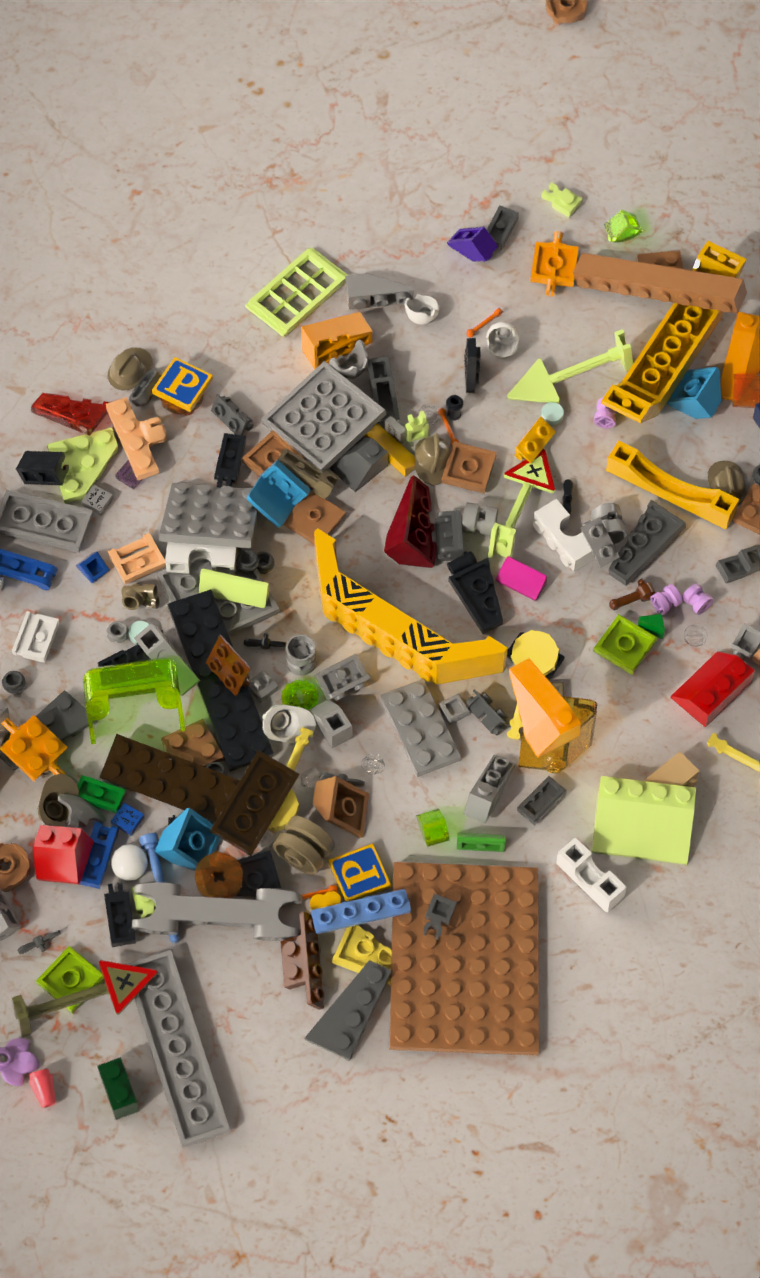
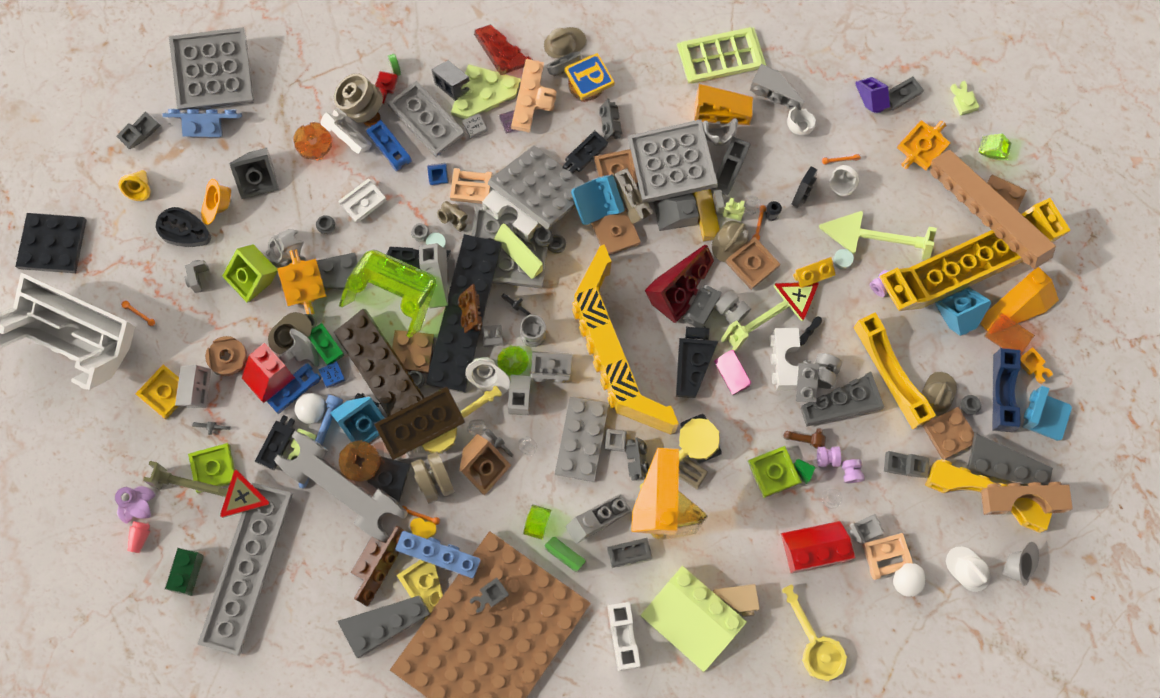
camera: 30 degrees right, 10 degrees up
(359, 873) = (462, 522): tile -> none

